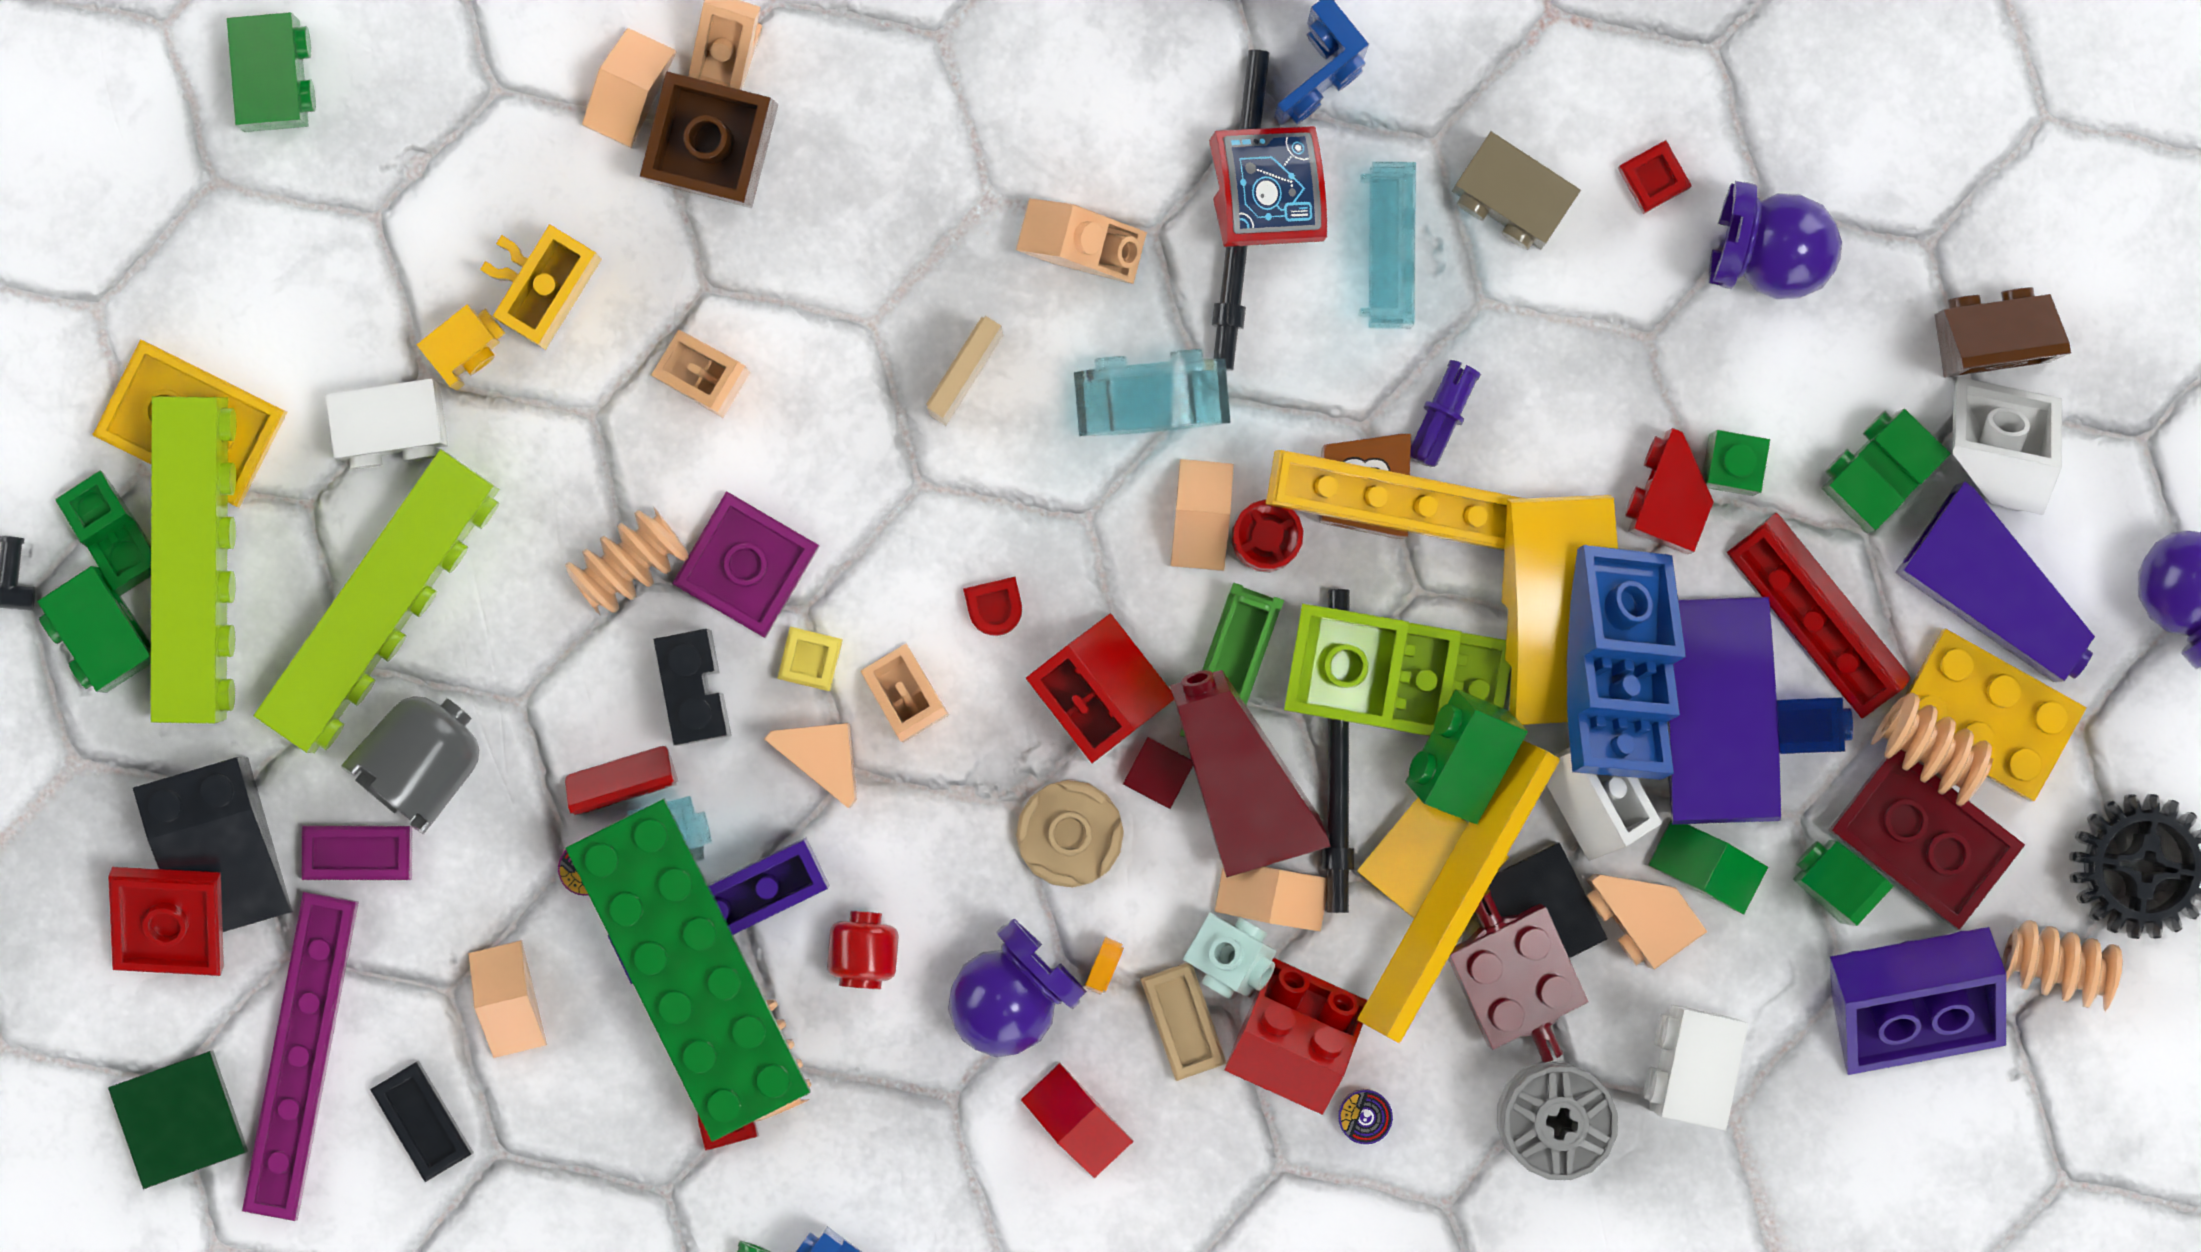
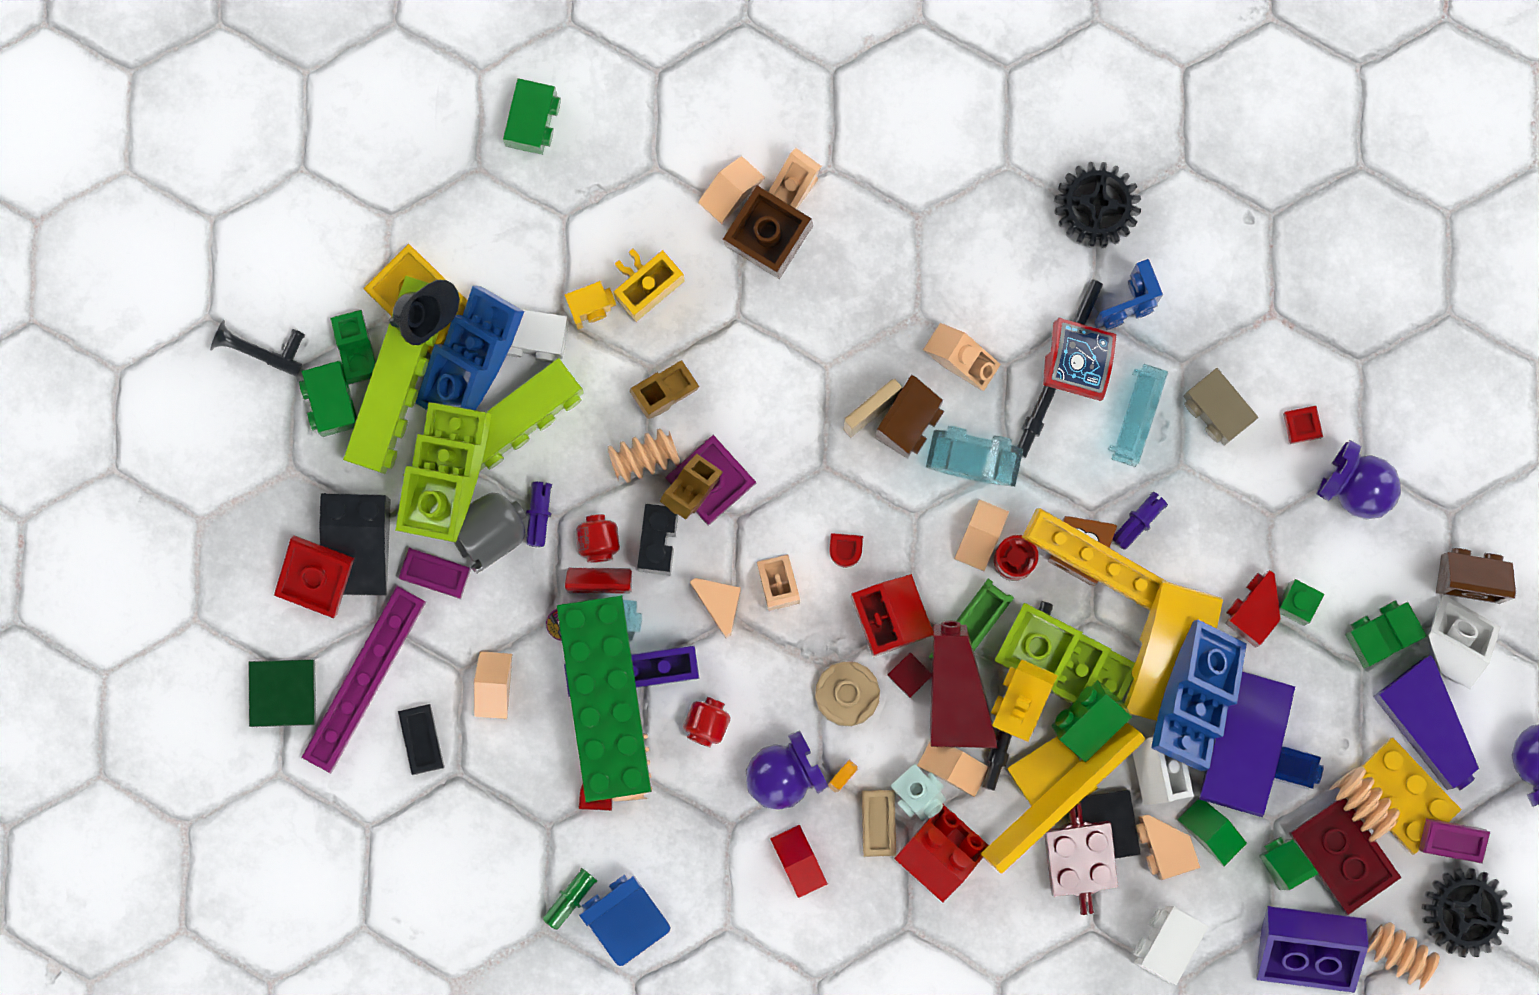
camera: 25 degrees right, 5 degrees down
(202, 447) = (425, 312): none -> black piece
(298, 494) = (472, 352): none -> blue slope
(316, 693) = (443, 472): none -> lime slope
(490, 707) = (538, 514): none -> dark purple axle
(596, 716) = (597, 539): none -> red head
(625, 445) = (664, 389): none -> pearl gold brick
(701, 373) = (721, 363): light nougat slope -> none
(718, 589) = (691, 487): none -> pearl gold brick
(810, 659) = (730, 545): light yellow tile -> none
(1030, 366) = (909, 418): none -> reddish brown slope
(1350, 758) = (1024, 700): none -> yellow brick
(1365, 1116) = (967, 913): tile -> none
(1542, 1092) = (1059, 955): light grey wheel -> none
(1819, 615) = (1321, 707): red slope -> none
(2089, 760) = (1454, 840): none -> magenta tile

